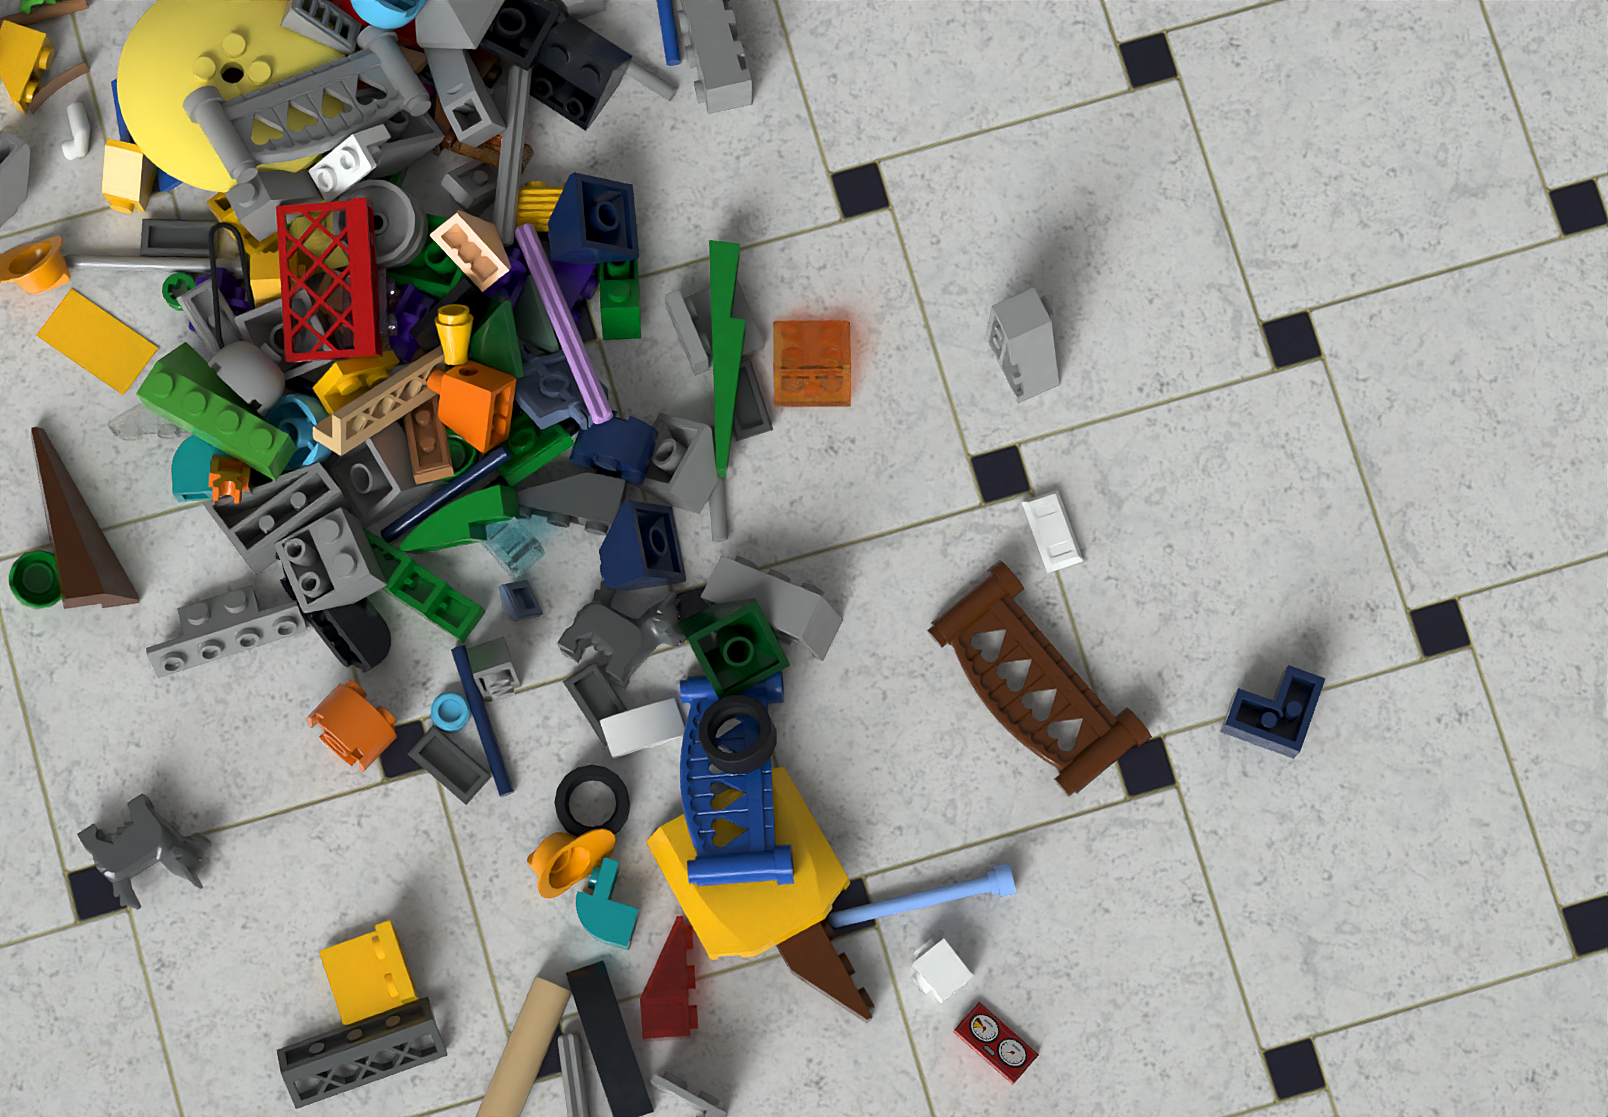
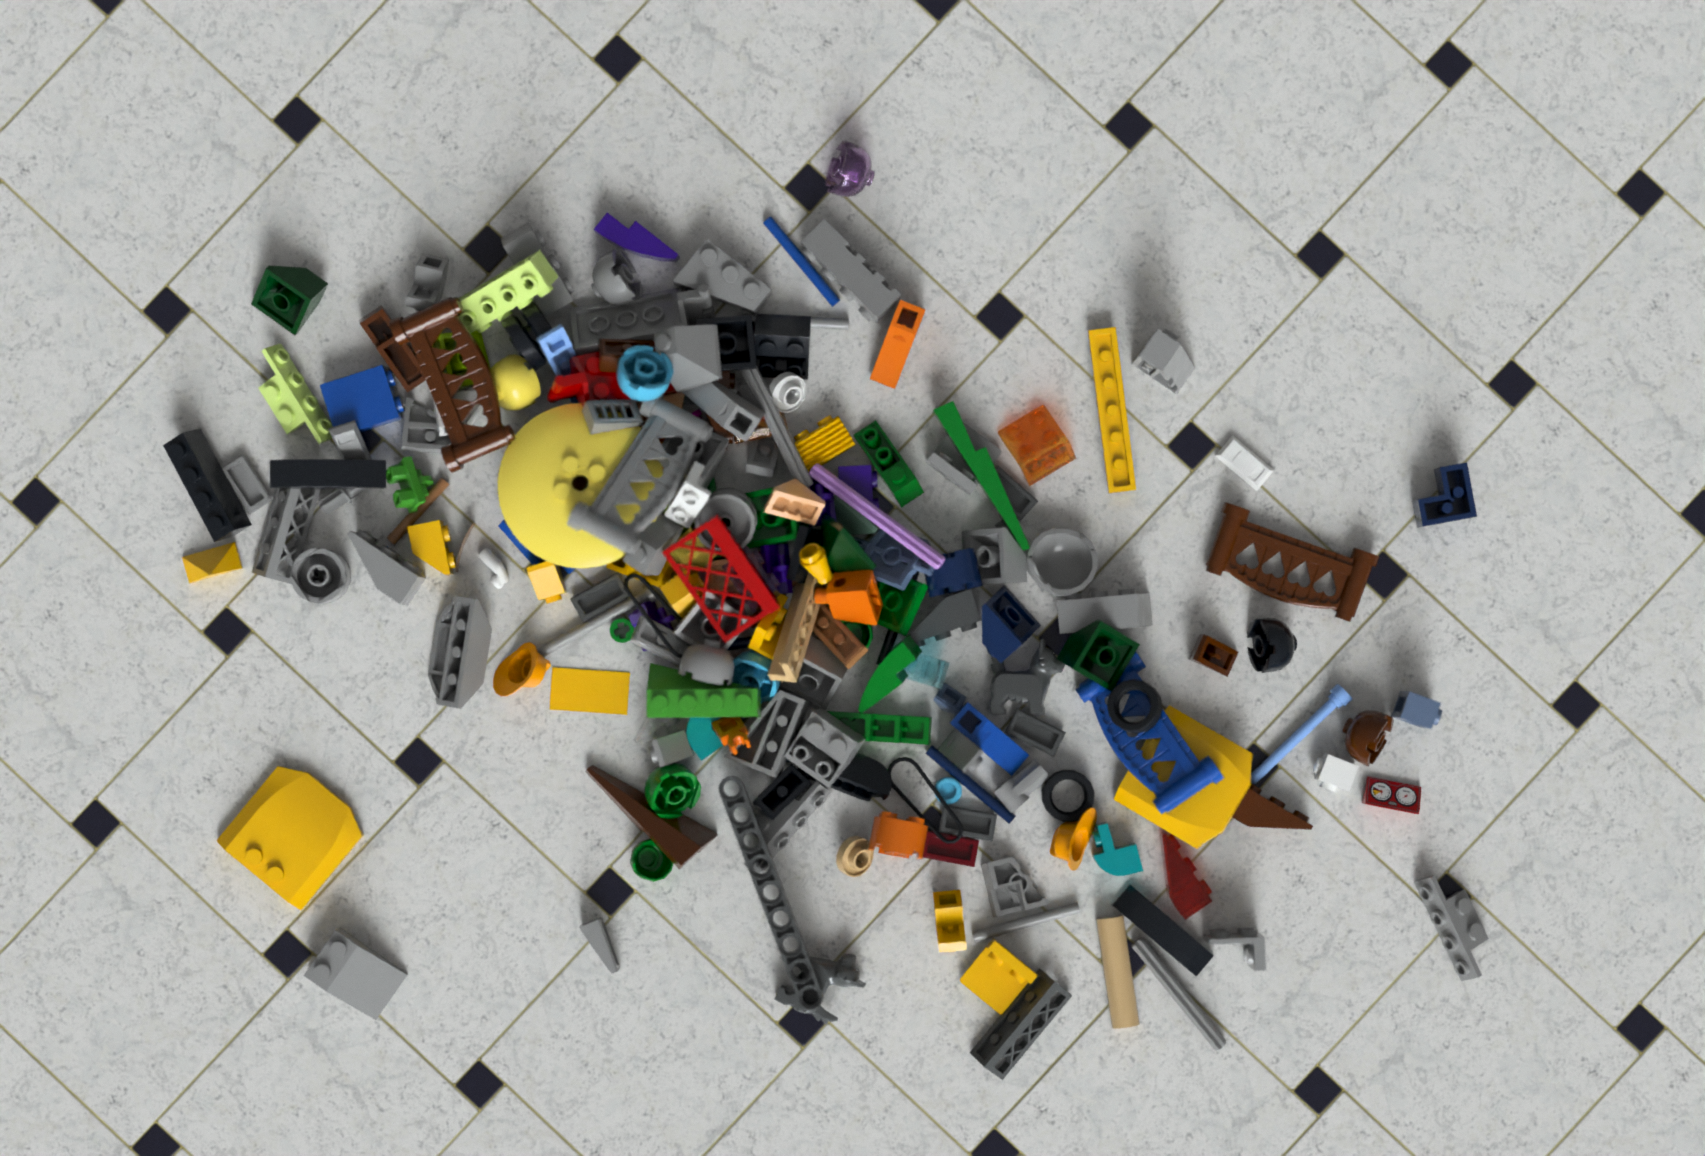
camera: 30 degrees left, 10 degrees up
(115, 508) = (672, 790): none -> green cylinder
(144, 458) = (671, 748): none -> light grey slope
(159, 715) = (781, 903): none -> dark grey beam
(244, 587) = (781, 792): none -> black slope
(284, 722) = (854, 857): none -> tan plate
(352, 867) = (949, 921): none -> yellow brick
(408, 783) = (960, 852): none -> dark red tile
(410, 770) = (936, 793): none -> black piece
(446, 494) = (866, 661): dark blue bar -> none
(446, 930) = (1026, 922): none -> light grey bar
(452, 875) = (1009, 888): none -> light grey slope
(533, 758) = (1018, 788): none -> light grey piece
(537, 674) = (989, 738): none -> blue slope
(550, 127) = (788, 391): none -> white plate
(593, 222) = (856, 440): dark blue slope -> none
(643, 727) = (1070, 732): white slope -> none
(717, 145) = (897, 344): none -> orange slope
(756, 511) = (1062, 561): none -> light grey cylinder
(875, 736) = (1213, 655): none -> reddish brown slope
(927, 373) = (1111, 410): none -> yellow plate
(954, 765) = (1272, 644): none -> black cylinder
(1006, 946) = (1367, 735): none -> reddish brown cylinder
(1087, 949) = (1417, 710): none -> sand blue brick

